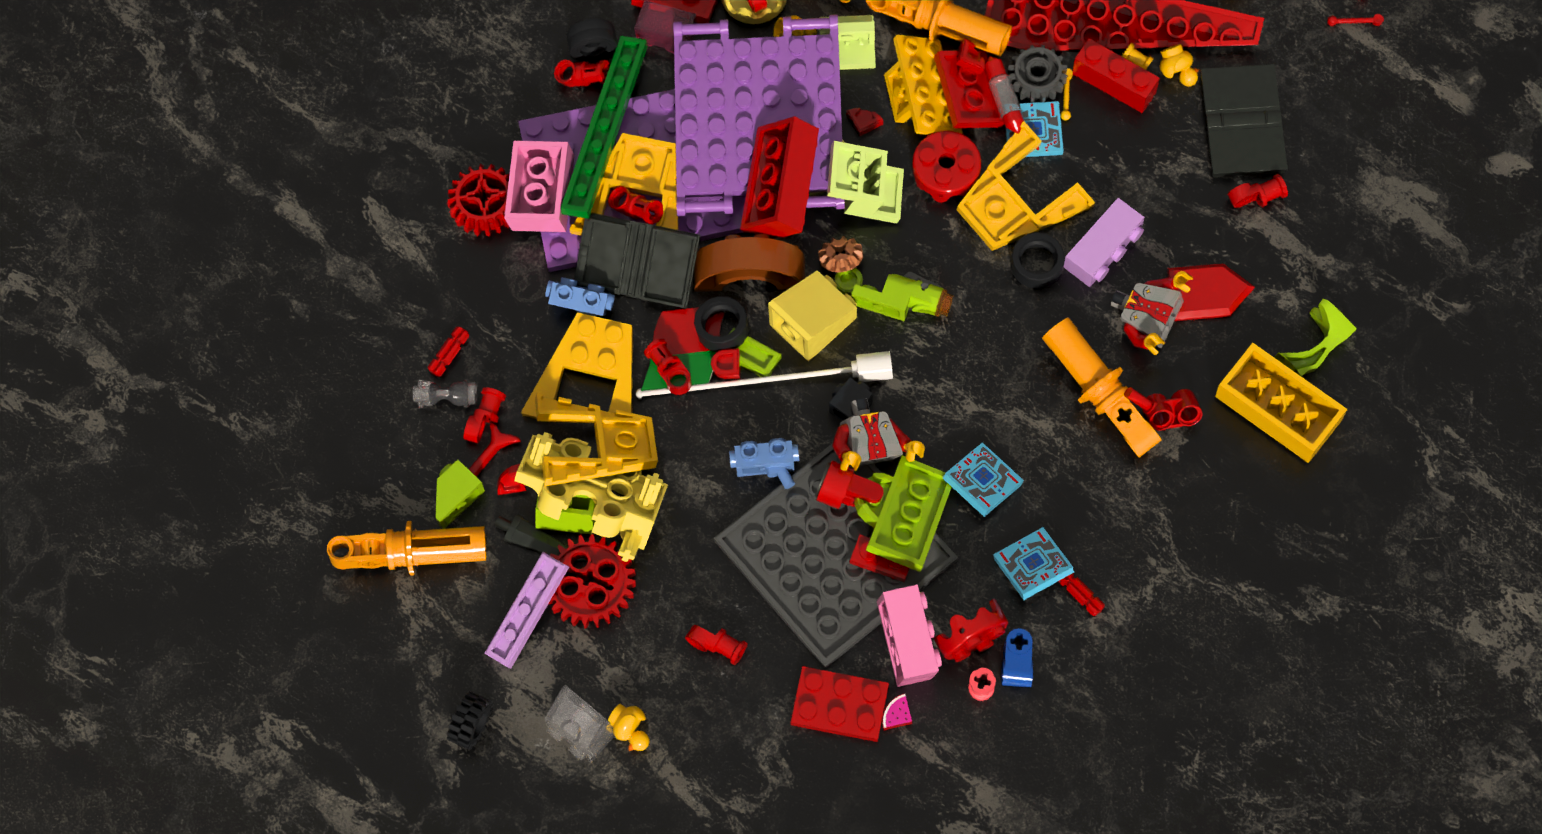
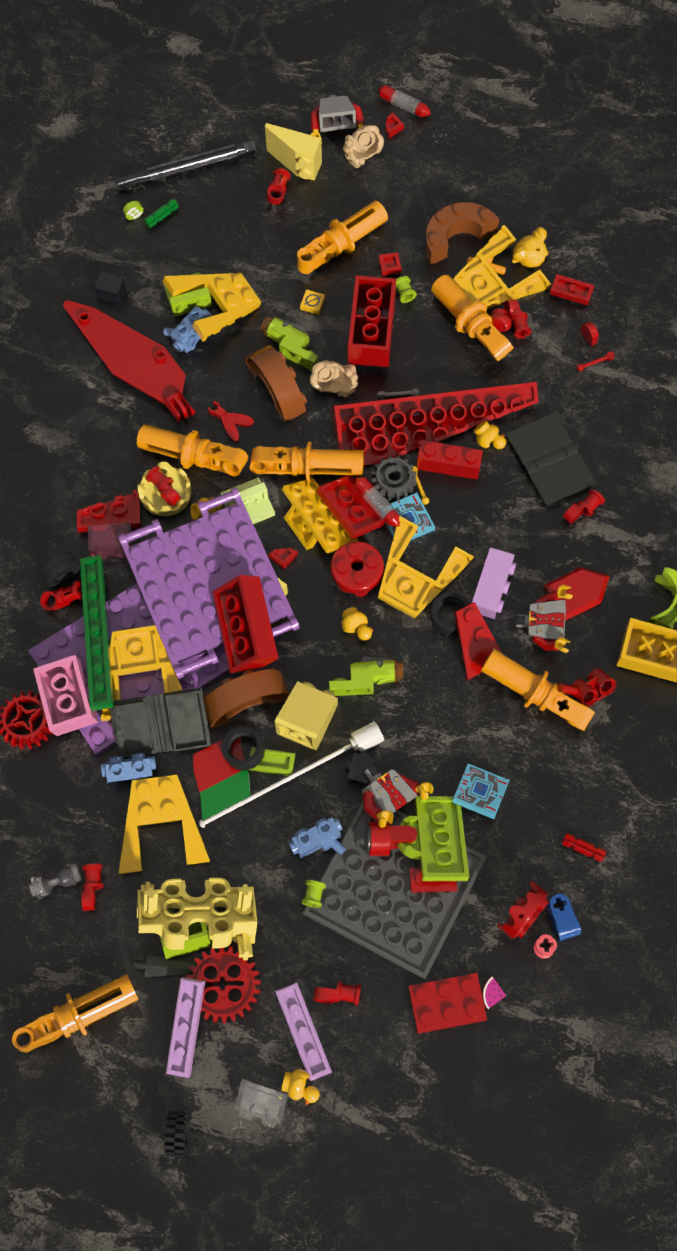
camera: 25 degrees left, 0 degrees up
(448, 351) = (44, 847): red axle -> none
(455, 492) = (93, 954): lime slope -> none
(498, 441) = (110, 902): red piece -> none
(506, 482) = (130, 930): red tile -> none
(622, 441) = (205, 865): yellow wing -> none
(629, 206) = (140, 687): red connector -> none
(659, 670) = (303, 1031): none -> lavender tile
(668, 366) = (216, 794): red connector -> none
(726, 363) = (258, 776): red tile -> none
(734, 519) = (313, 894): none -> lime bush
(840, 262) = (311, 668): nougat gear -> none
(846, 280) = (320, 679): lime tile -> none
(865, 182) = (306, 602): yellowish green bracket -> none
(908, 635) = (480, 933): bright pink brick -> none
(917, 228) = (356, 621): none -> yellow animal
(969, 57) = (342, 484): red tile -> none
(1033, 563) = (543, 840): medium azure tile -> none
(1052, 298) = (474, 638): none -> red wing
(1136, 57) = (458, 441): yellow bush -> none

